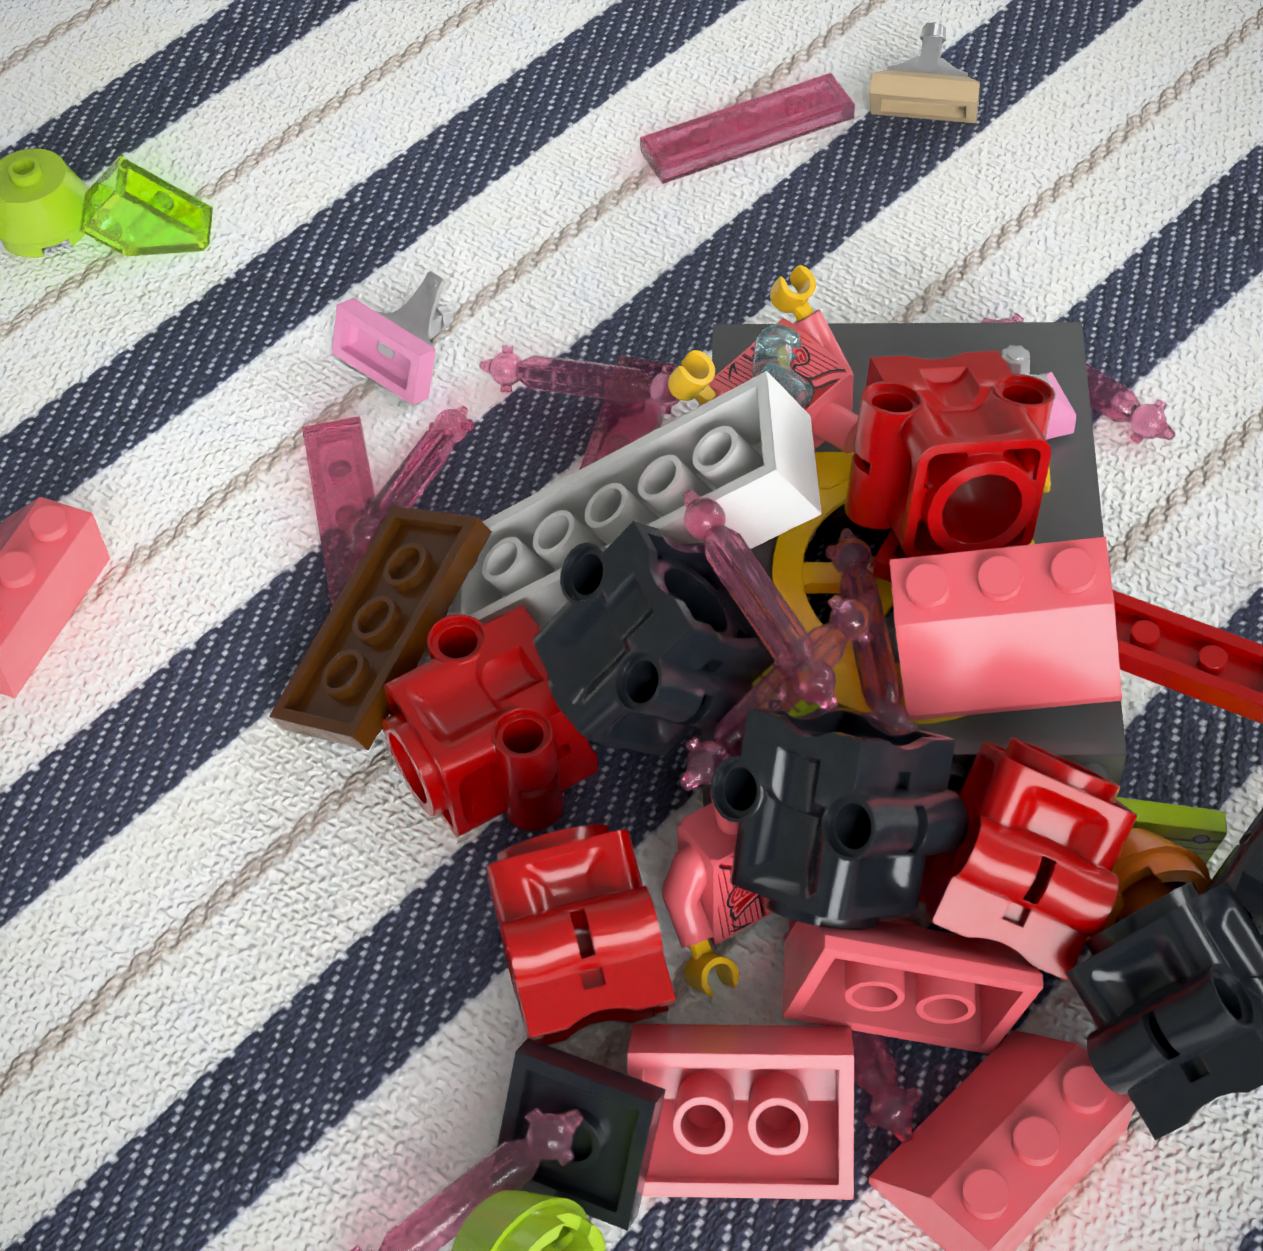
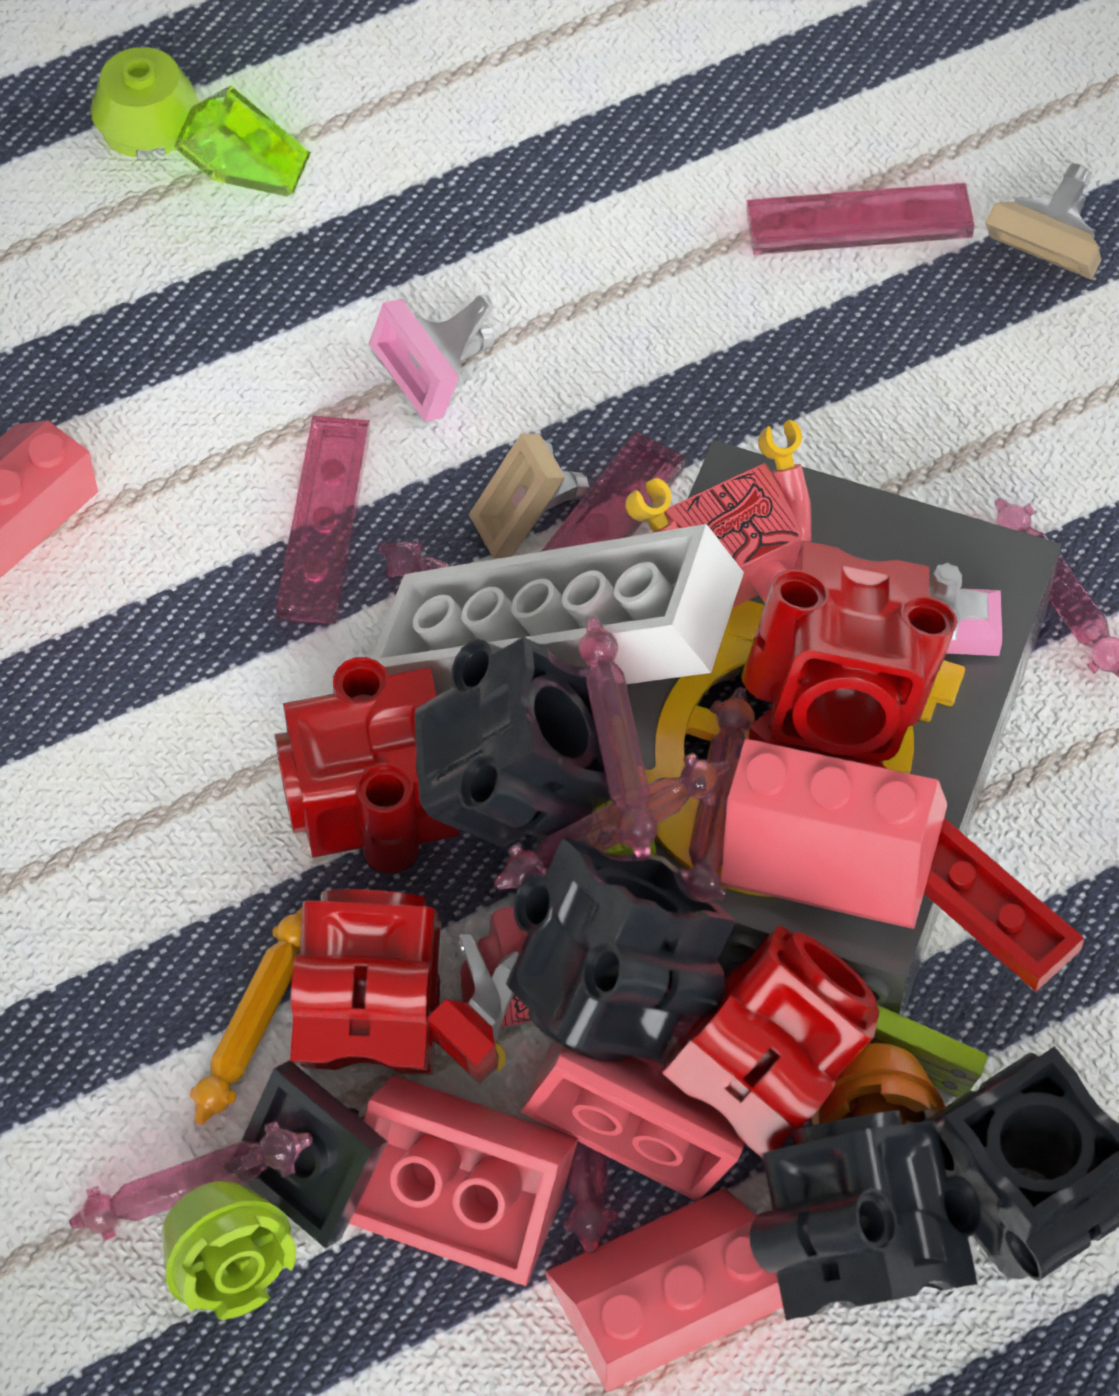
camera: 15 degrees right, 5 degrees up
(380, 624) = (307, 637): reddish brown plate -> none
(412, 474) = (390, 501): clear pink wheel -> none
(457, 1014) = (214, 1092): none -> light orange wheel
(536, 433) = (520, 494): none -> tan piece
(580, 378) = (587, 445): clear pink wheel -> none
(705, 947) = (471, 1028): none -> piece
(774, 355) = (726, 514): clear light blue arm -> none

